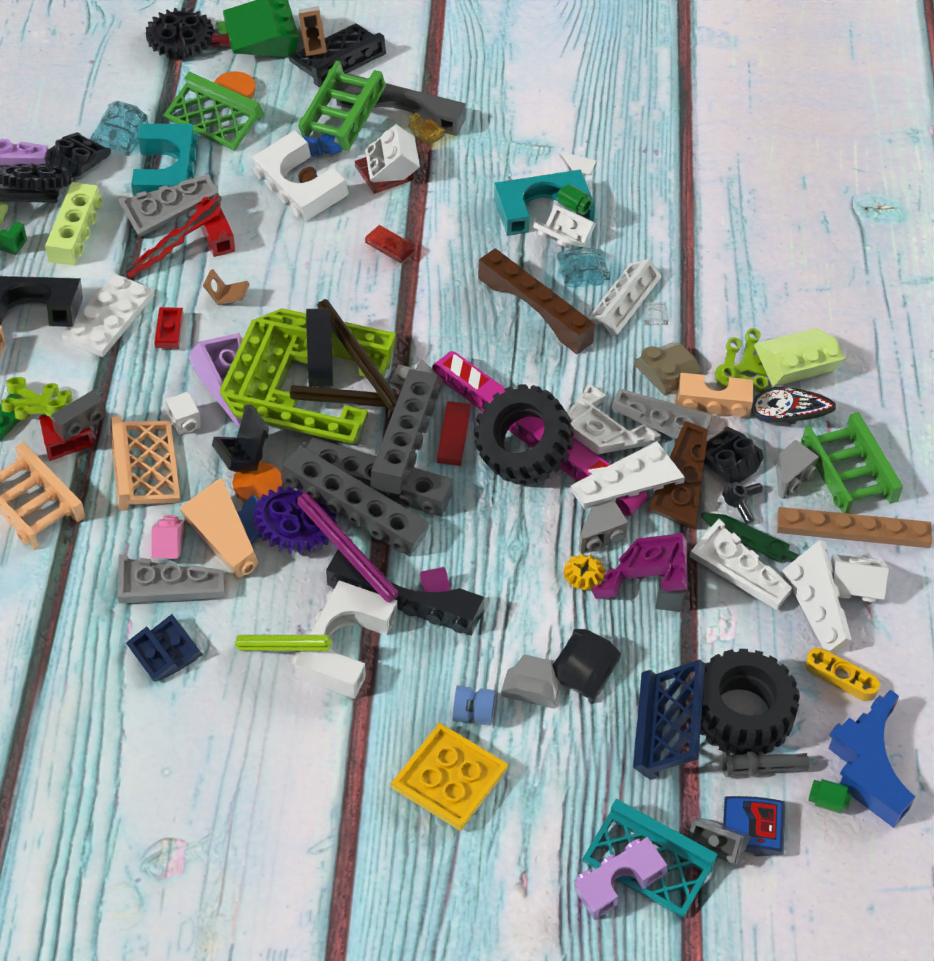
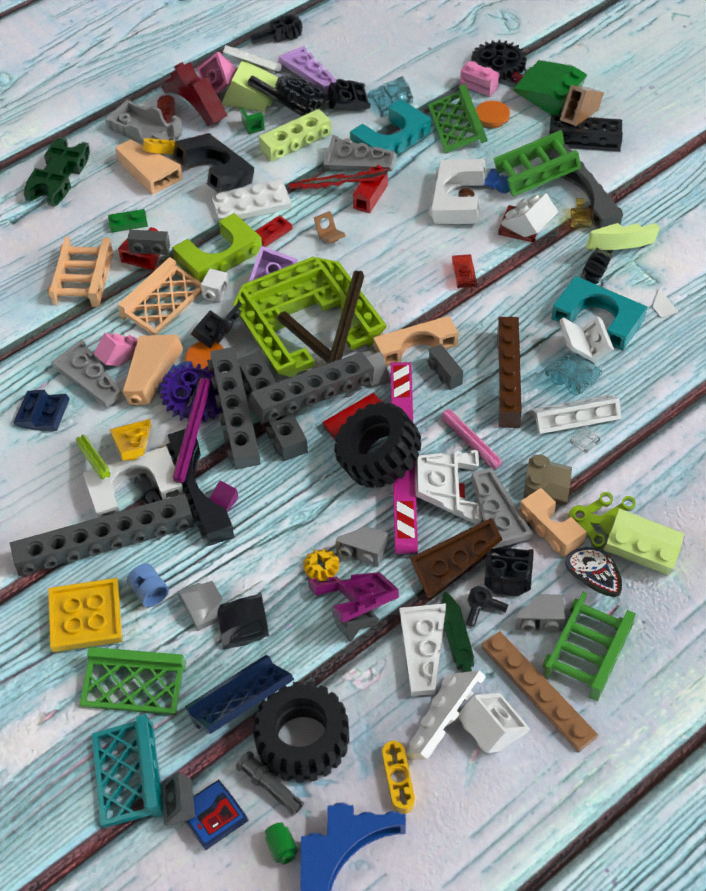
camera: 50 degrees right, 0 degrees up
(43, 403) = (147, 223): lime plant -> none
(149, 353) = (243, 242): none -> lime arch
(182, 59) = (479, 78): none -> bright pink brick
(296, 601) = (131, 439): none -> yellow wing
(319, 347) = (327, 300): black slope -> none
(337, 782) = (90, 533): none -> dark grey brick
(366, 634) = (148, 492): none -> black pin
(438, 312) = (429, 333): none -> light nougat arch
(480, 335) = (445, 366): none -> dark grey piece
(491, 124) = (619, 237): none -> yellowish green slope
(496, 160) = (596, 265): none -> black gear
(541, 775) = (133, 660): none -> bright green fence
(571, 378) = (471, 439): none -> bright pink axle
(574, 199) = (610, 321): green brick -> none
(635, 473) = (424, 528): white wing -> none
(638, 860) = (71, 757): lavender arch -> none

